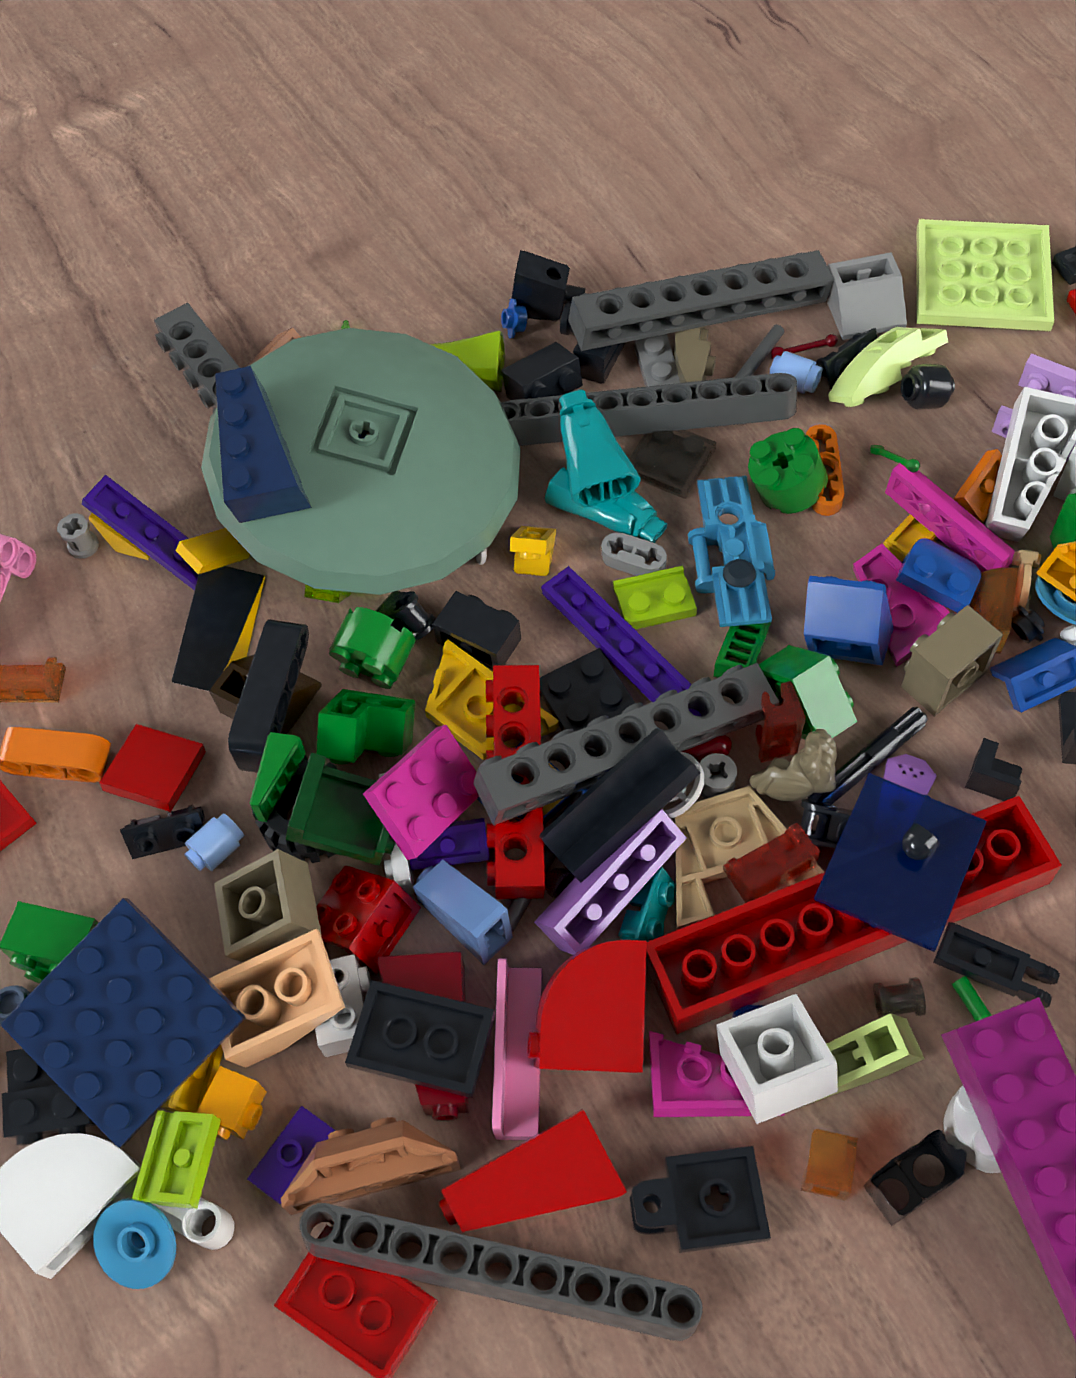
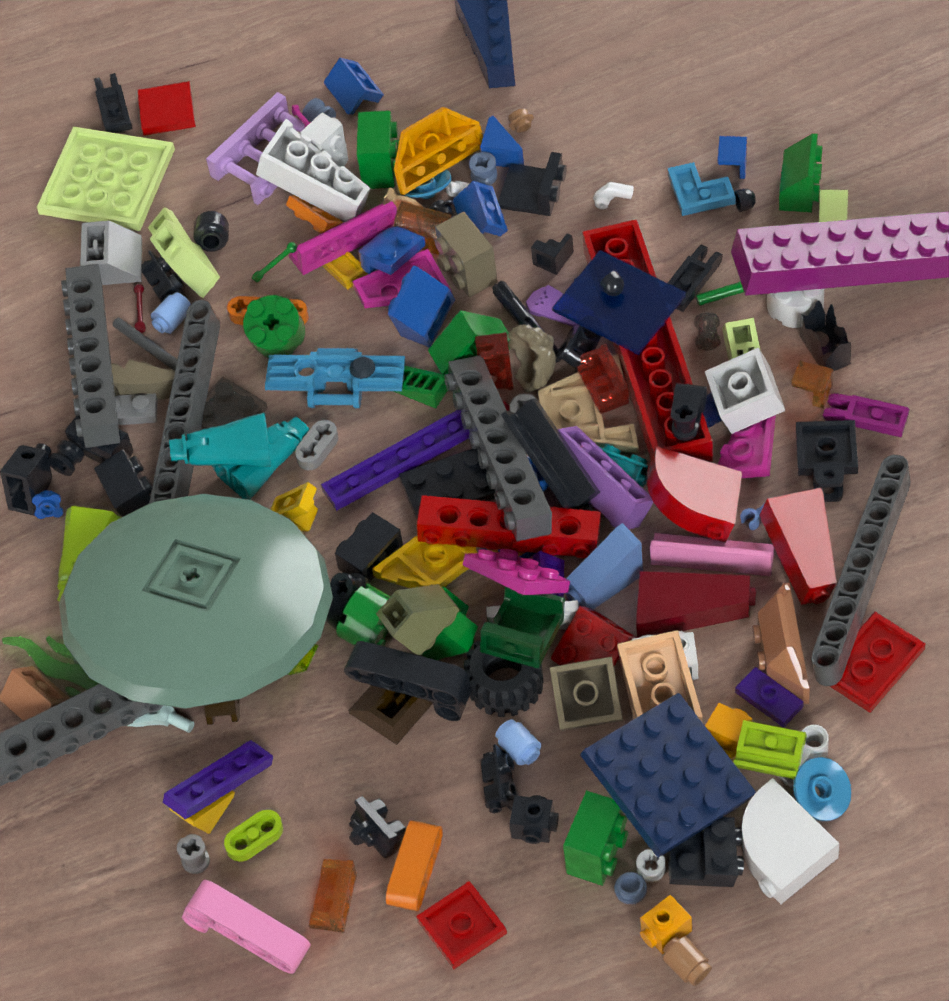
camera: 80 degrees left, 5 degrees down
(92, 715) = (371, 828): none -> black hips
(100, 872) = (533, 819): none -> black brick
(103, 590) = (252, 835): none -> lime plate
(152, 767) = (440, 791): red tile -> none
(211, 550) = (243, 736): yellow tile -> none
(217, 625) = (316, 742): black sticker -> none
(254, 456) = (203, 637): dark blue wedge -> none
(277, 767) = (485, 669): green slope -> none
(336, 680) = (418, 616): none -> olive slope
(421, 1038) = (704, 591): black plate -> none
(590, 1106) = (751, 513): none -> medium blue hand
(655, 598) = (358, 435): lime plate -> none
(721, 974) = (687, 410): none -> black piece
(790, 1264) = (868, 413): none -> magenta hinge

